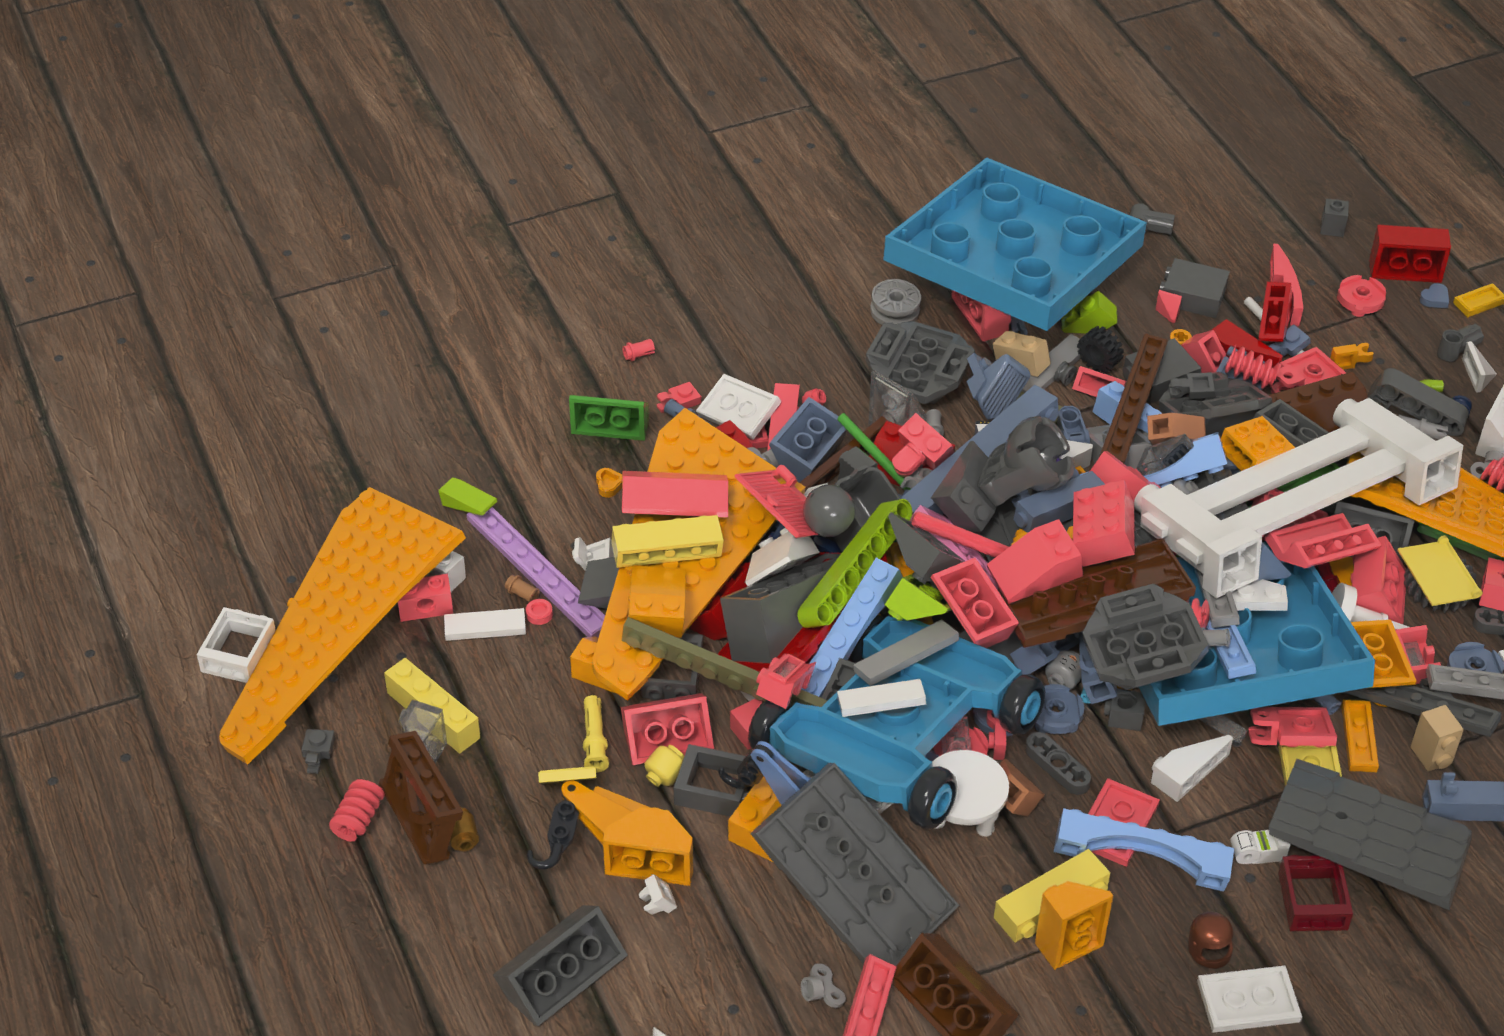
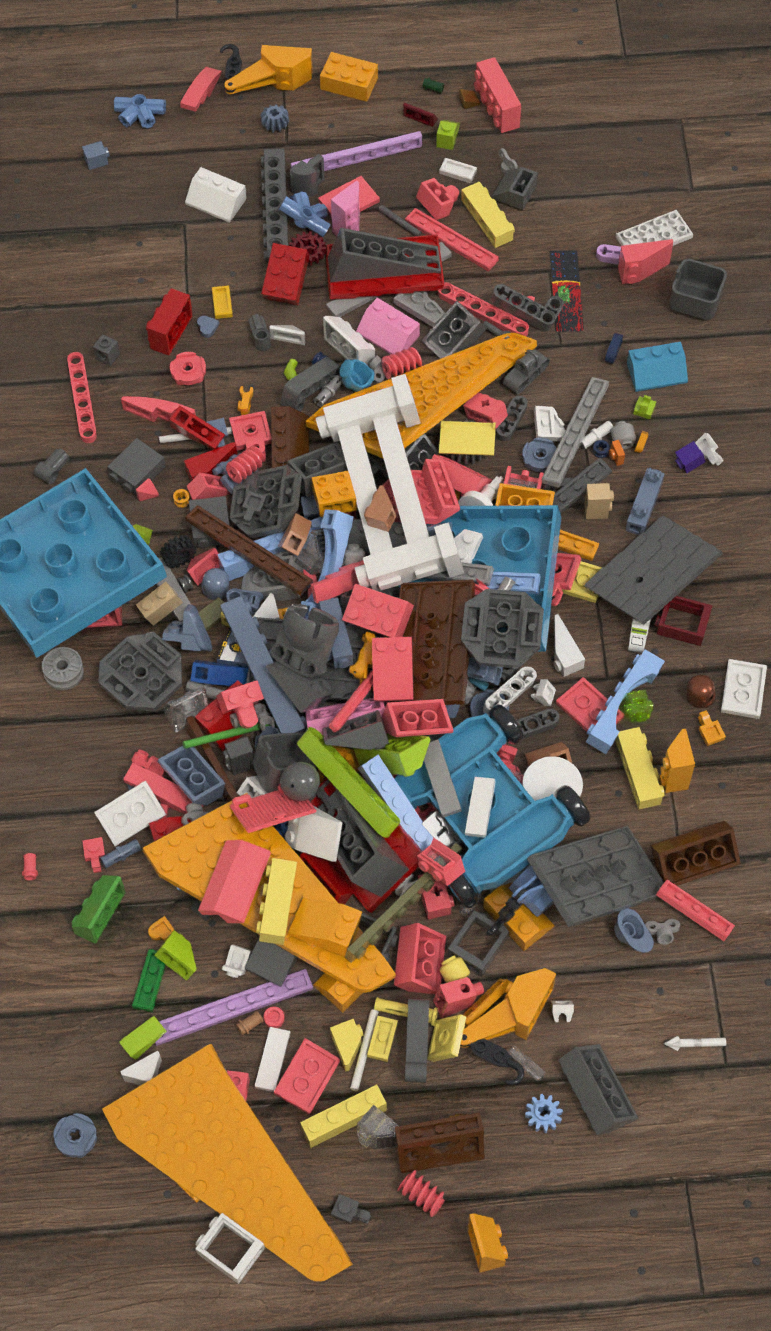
camera: 70 degrees left, 15 degrees up
(304, 877) = (486, 1242): none -> light orange slope
(340, 487) = (80, 1146): none -> sand blue plate
(430, 505) = (142, 1070): none -> white slope
(473, 660) = (307, 1076): none -> coral tile
(505, 911) = (538, 1107): none -> light blue gear
(528, 684) = (347, 1041): none -> light yellow slope
(529, 708) = (364, 1050): none -> white piece
(543, 490) = (149, 983): none -> green tile
(548, 719) = (382, 1038): none -> light yellow plate
(548, 748) = (417, 1040): none -> dark grey beam
(569, 876) = (527, 1063): none -> clear axle
(581, 495) = (178, 955): none -> lime slope
(628, 771) = (456, 996): none -> coral torso
(800, 943) = (632, 931): none -> sand blue piece
(954, 421) = (218, 673): none -> blue slope
(1080, 393) = (215, 584): none -> sand blue helmet
(1087, 722) = (508, 690): none -> white beam
(1110, 761) = (544, 693): none -> white tile
(1145, 868) = (638, 706): none -> clear neon green brick
(1157, 970) = (710, 730): none -> light orange plate
(1250, 481) = (380, 512): none -> nougat slope
(1258, 218) = (82, 397): none -> coral beam
(1465, 433) = (356, 375): none -> dark azure hair

